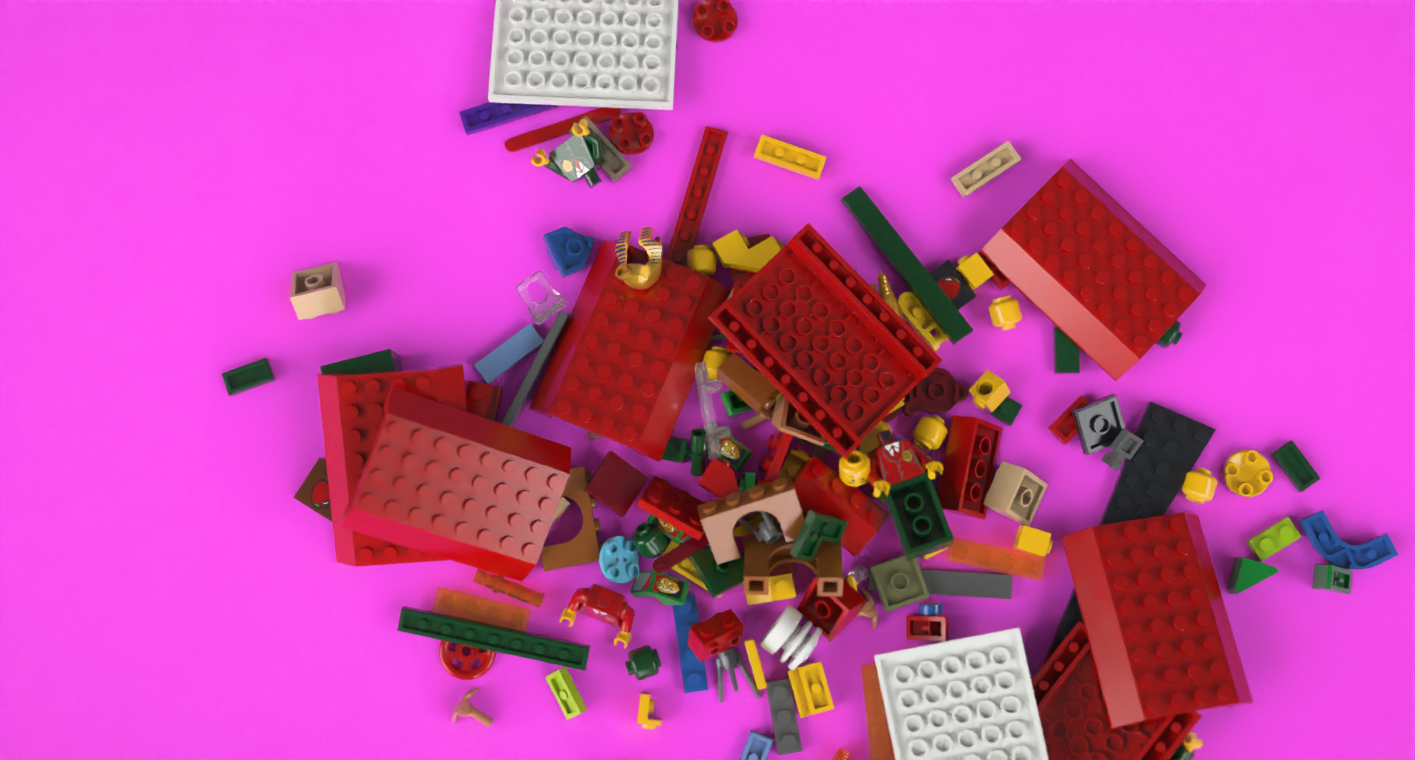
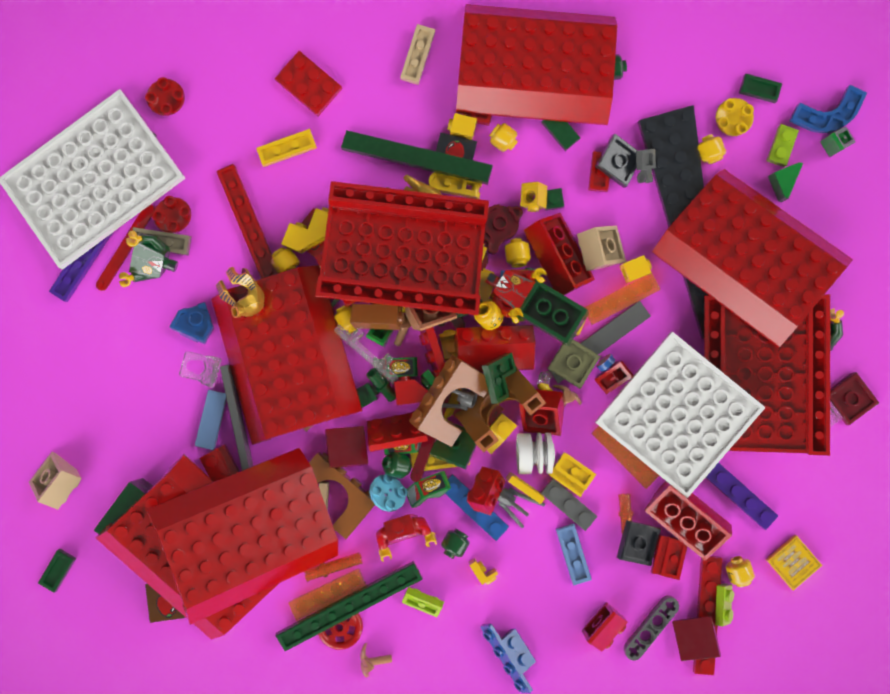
camera: 30 degrees left, 5 degrees up
(859, 114) = (308, 83): none -> red plate

